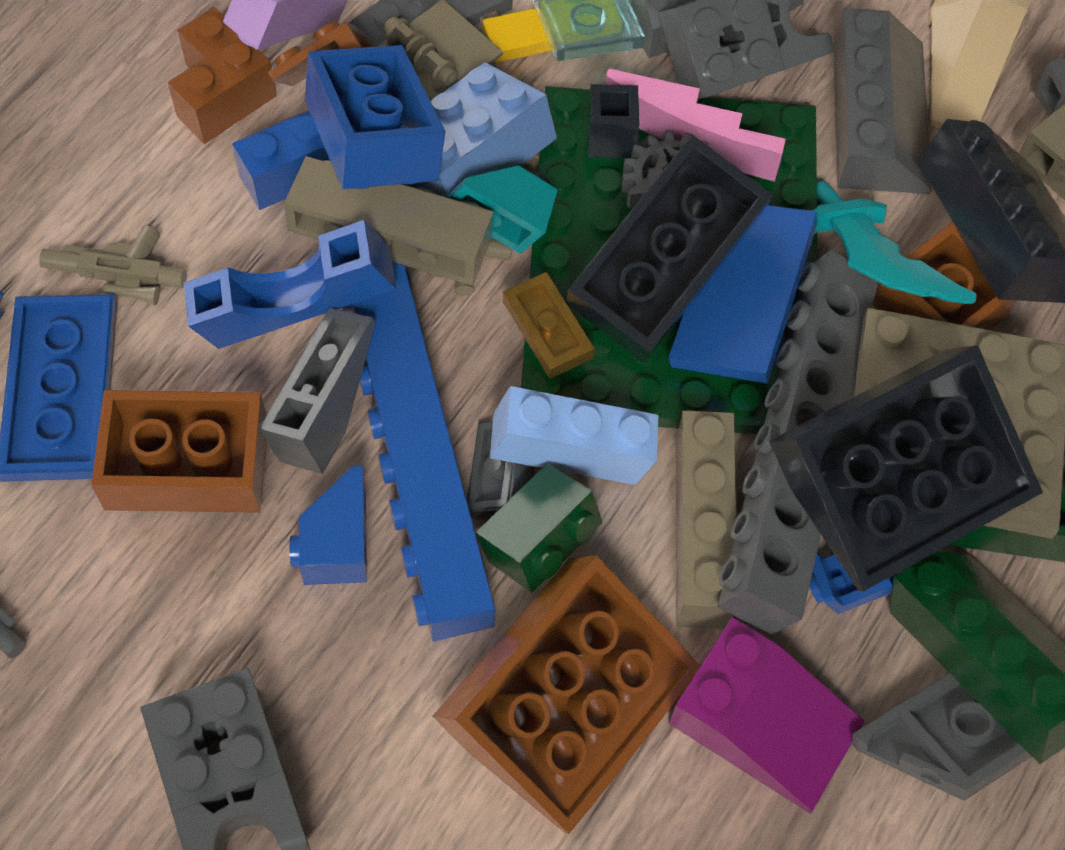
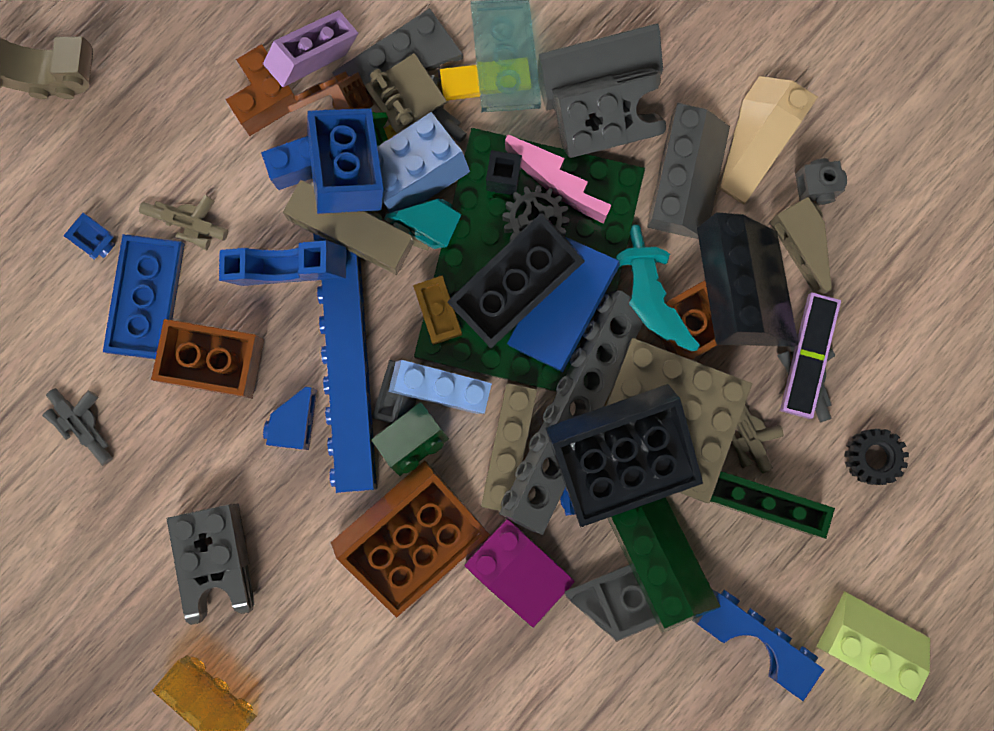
camera: 15 degrees right, 20 degrees up
(320, 393) = (294, 332): dark grey slope -> none

